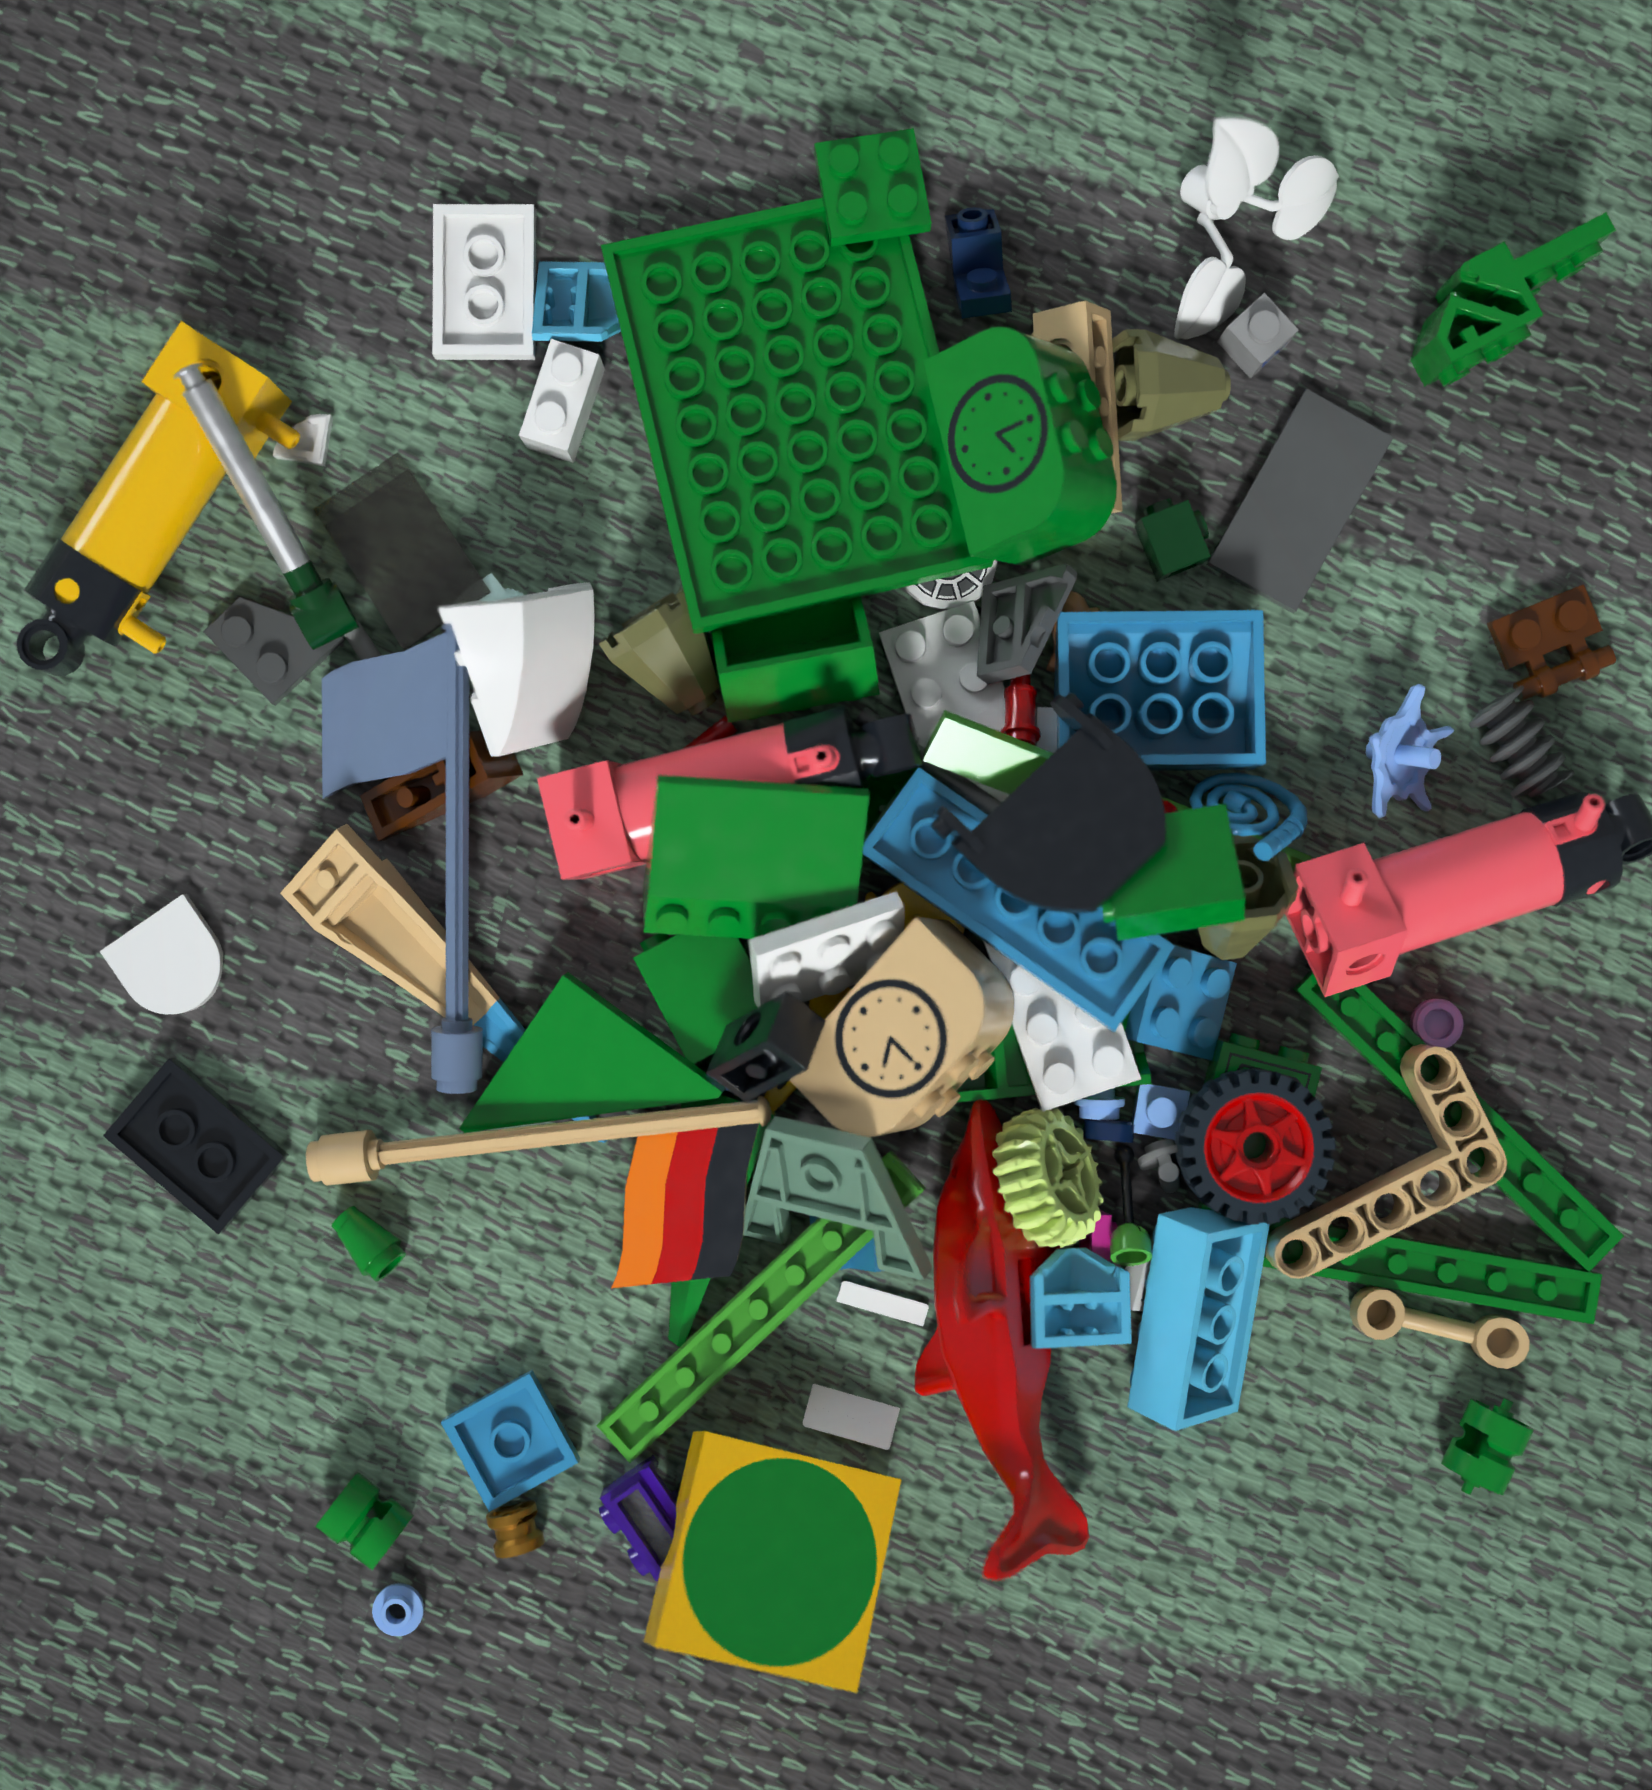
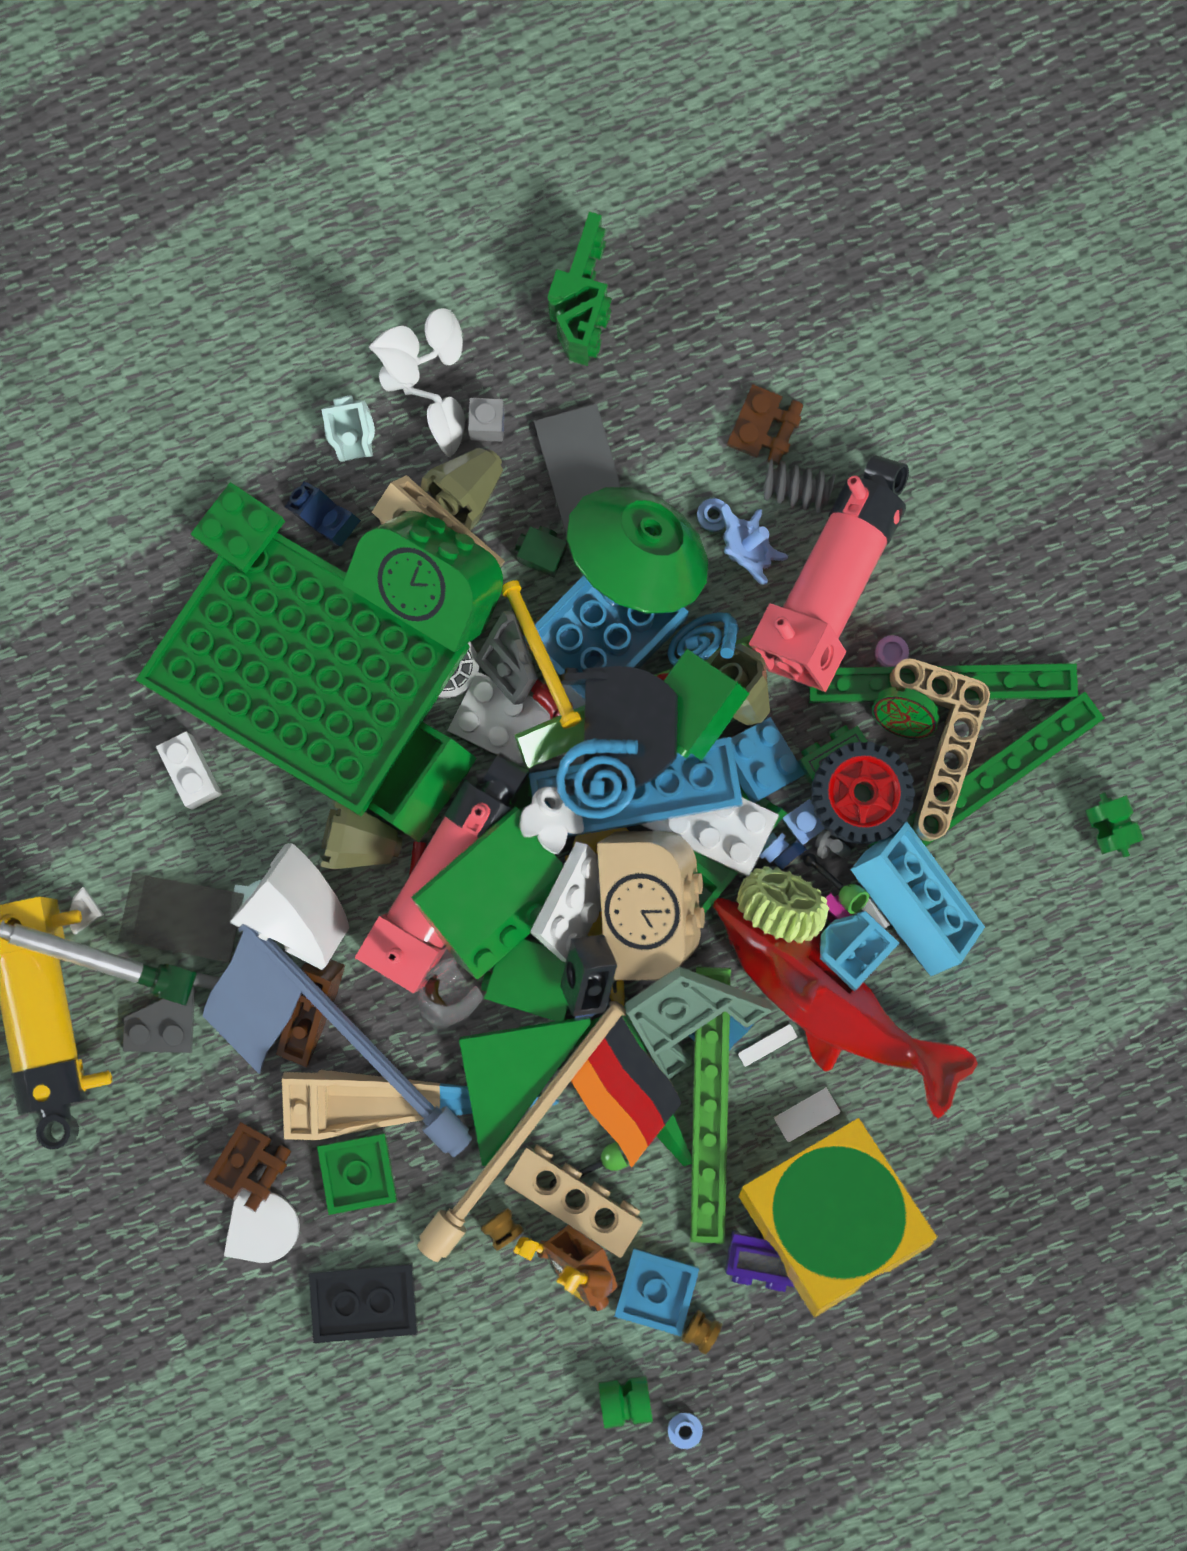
camera: 40 degrees left, 5 degrees down
(211, 869) = (238, 1162): none -> reddish brown plate
(321, 1005) = (357, 1174): none -> green plate
(368, 1243) = (493, 1265): green cone -> none
(414, 1210) = (500, 1226): none -> pearl gold wheel
(456, 1331) = (578, 1262): none -> dark orange torso
(484, 281) = (95, 751): white plate -> none
(521, 1340) = (613, 1237): none -> tan brick
(573, 303) = (148, 719): medium azure slope -> none
(596, 915) = (446, 996): none -> clear piece
(599, 1256) = (610, 1158): none -> bright green hinge
(885, 843) = (548, 823): none -> white plate
(978, 855) = (597, 785): none -> dark azure piece
(1023, 750) = (569, 717): none -> yellow bar
(1099, 197) = (349, 428): none -> light aqua hand
(1277, 641) = (637, 550): none -> green dish
(1381, 679) = (707, 523): none -> light blue plate
(1387, 1106) = (906, 713): none -> green tile
(1493, 1337) = (1067, 772): tan piece -> none

